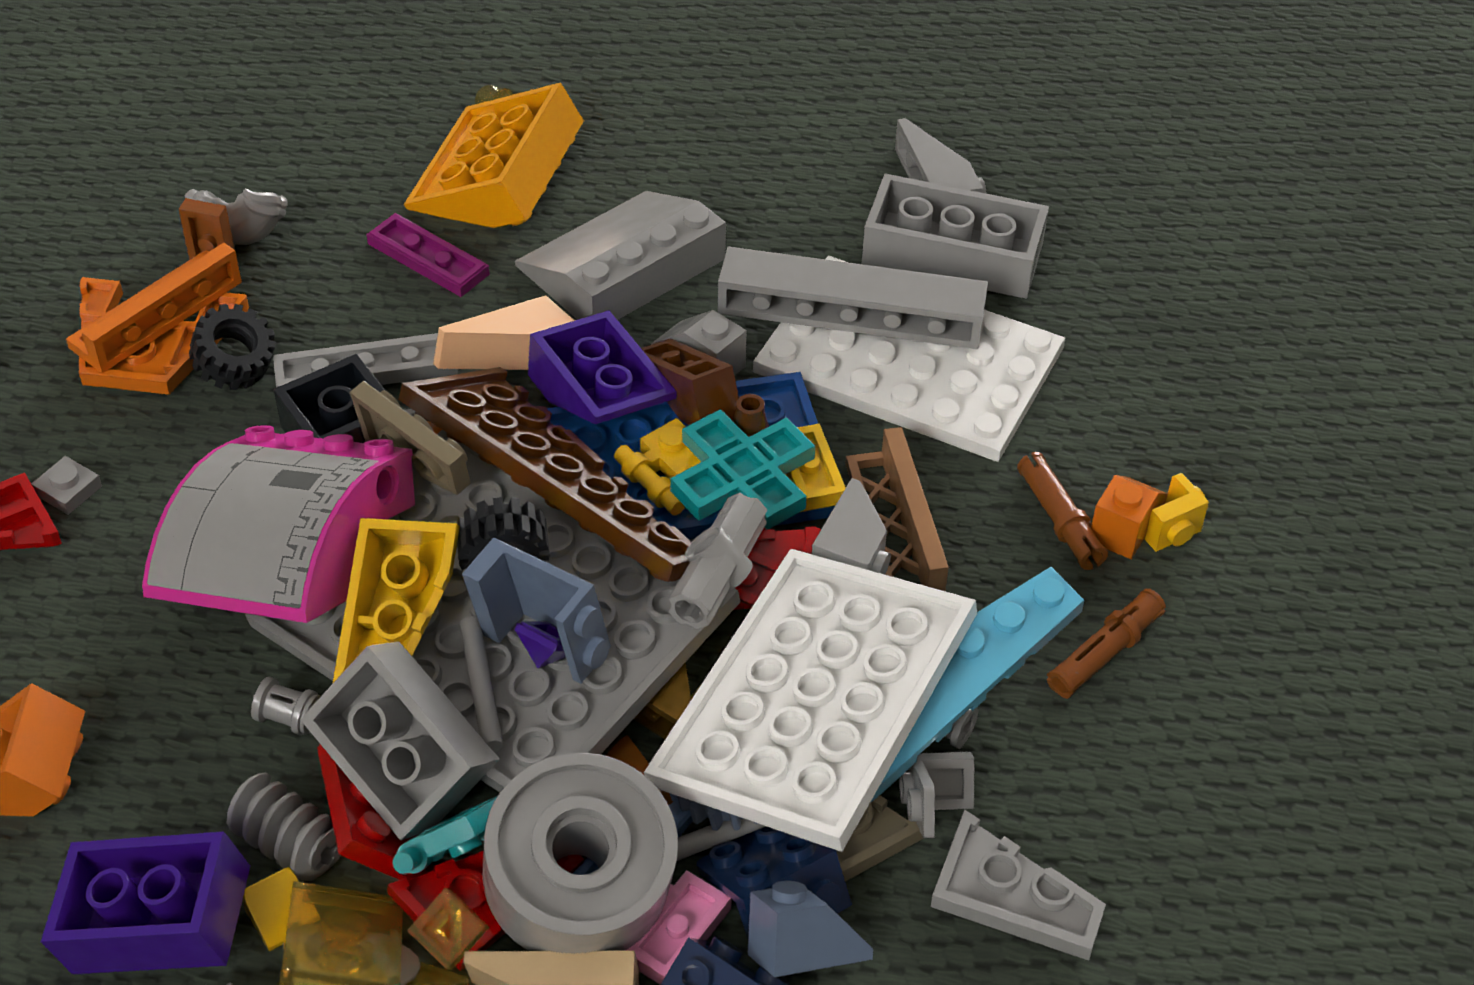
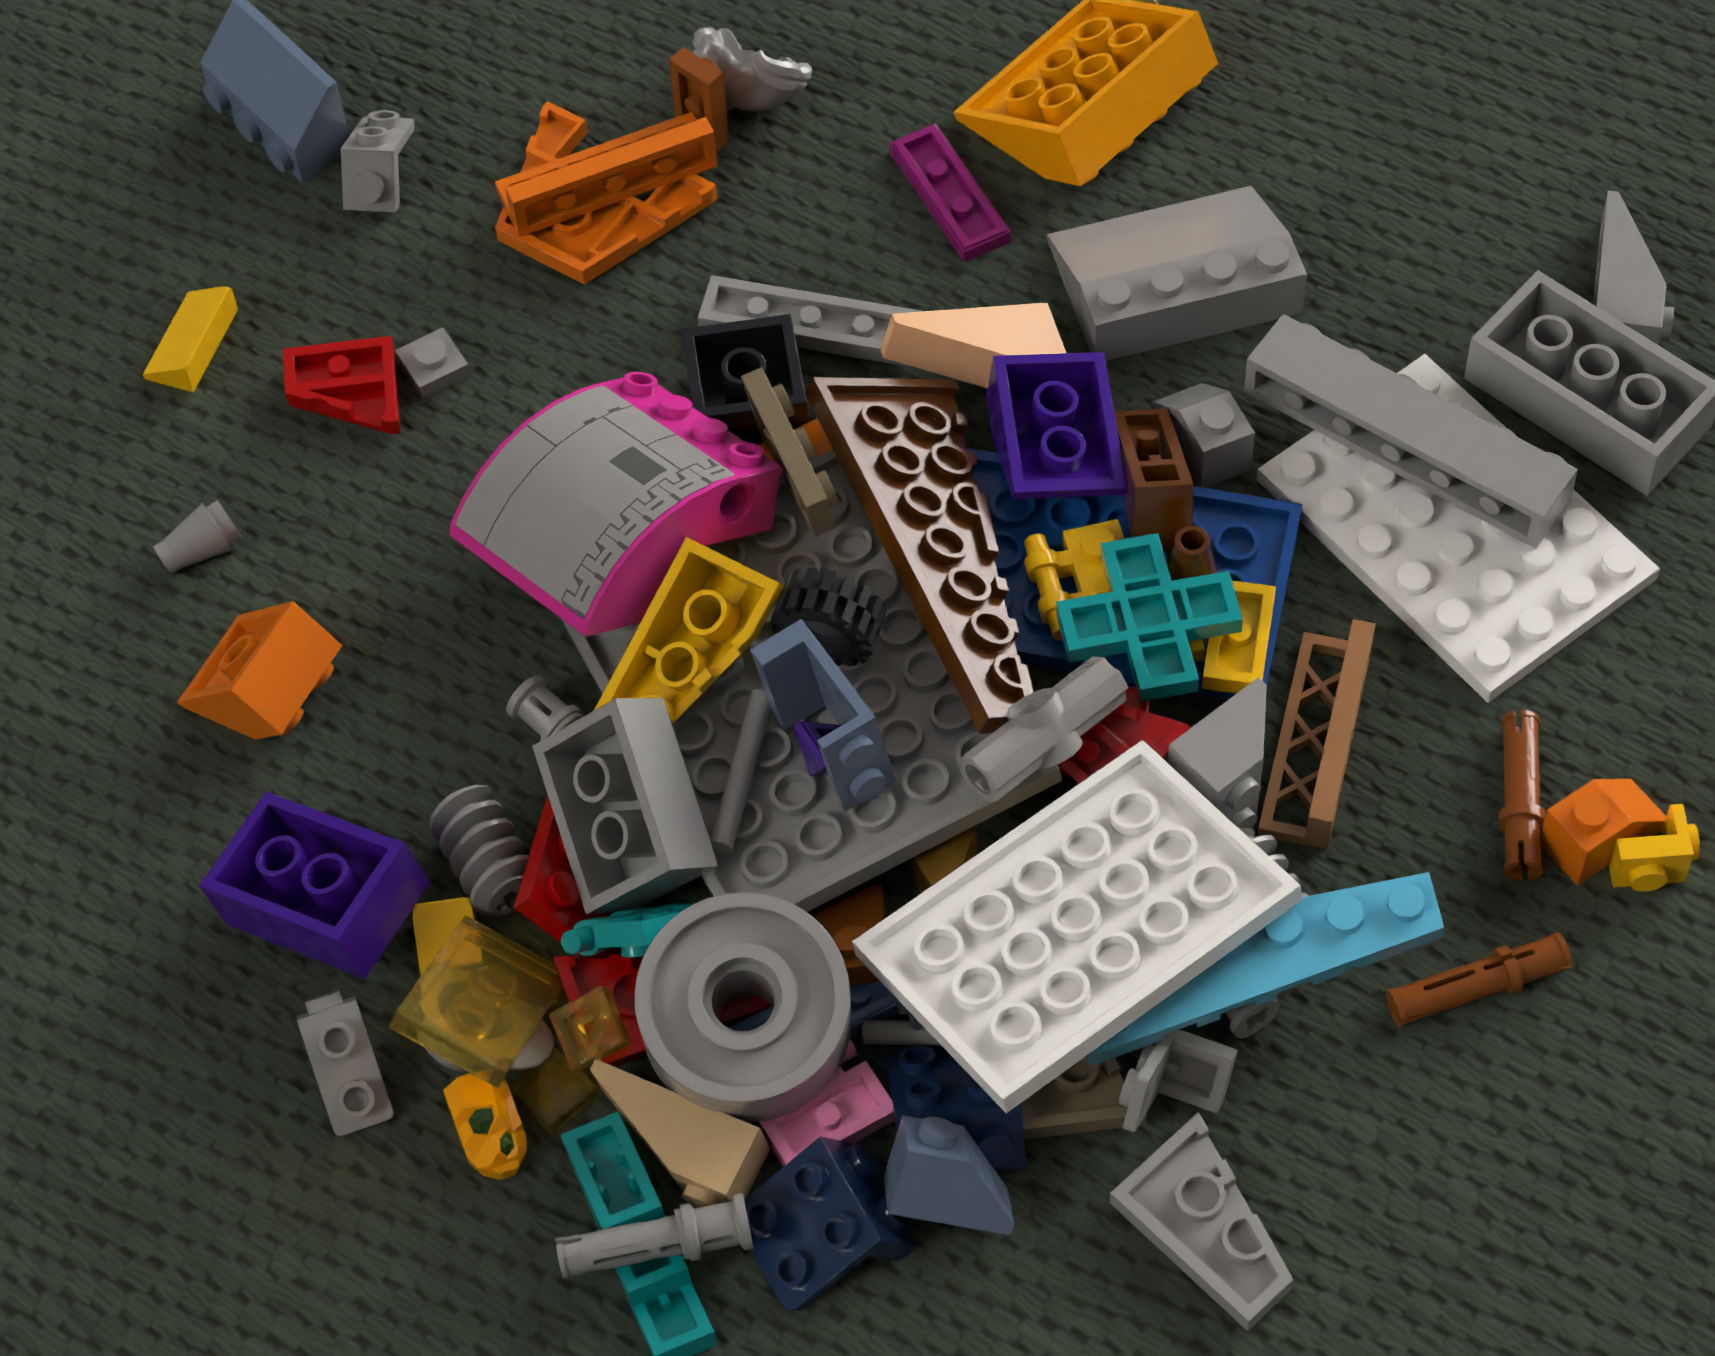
camera: 30 degrees right, 10 degrees up
(238, 326) = (678, 221): black tyre -> none

